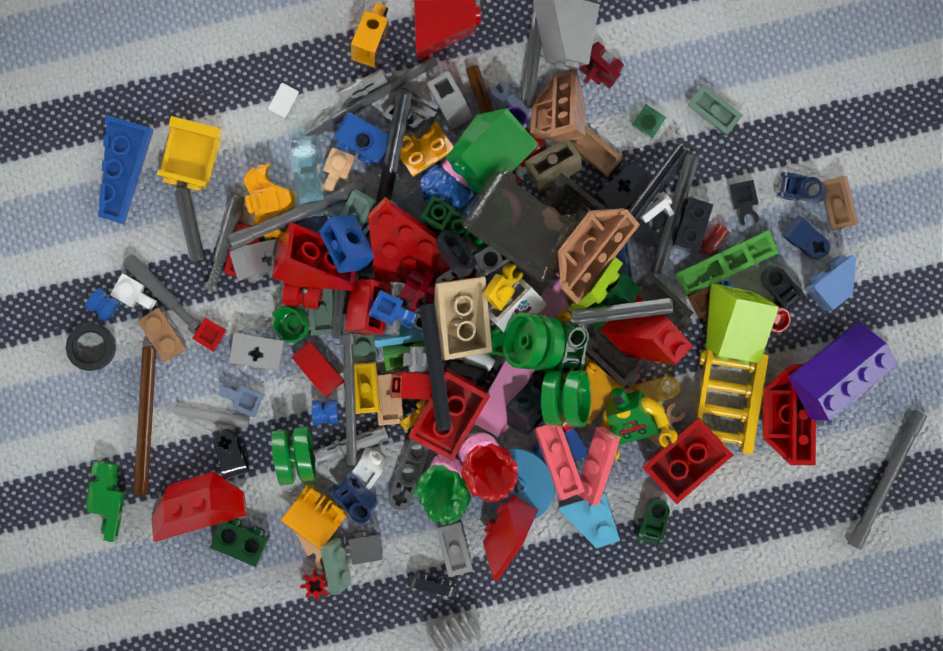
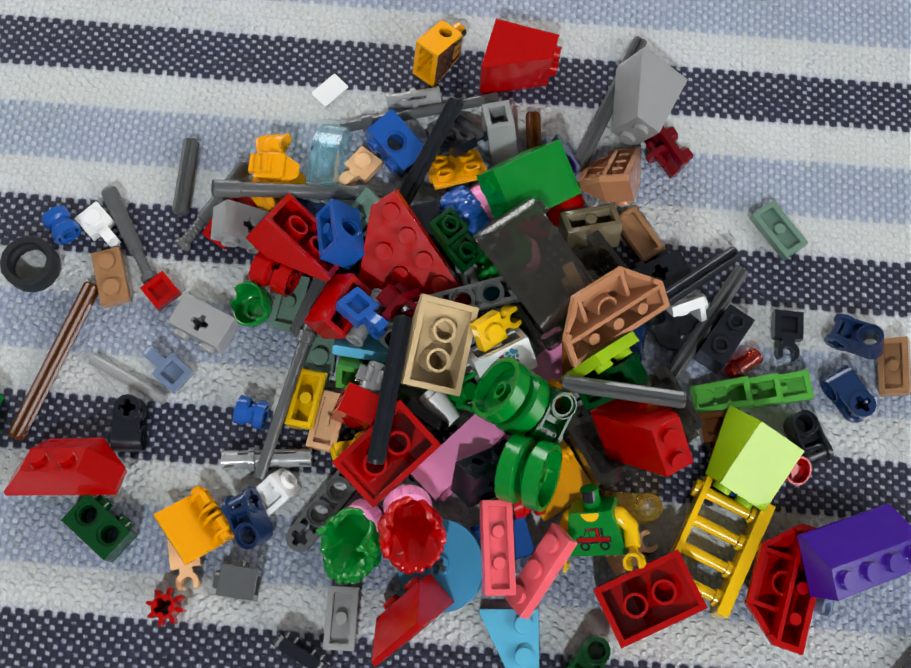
camera: 20 degrees right, 15 degrees down
(122, 164) = (147, 92): blue wing -> none
(190, 153) = (215, 107): yellow panel -> none
(291, 456) = (196, 445): green wheel -> none
(318, 369) = (262, 363): red slope -> none
(336, 566) = (196, 591): sand green plate -> none
(455, 252) = (454, 272): black plate -> none
(648, 121) = (703, 220): clear green plate -> none
(834, 285) = (870, 448): medium blue slope -> none

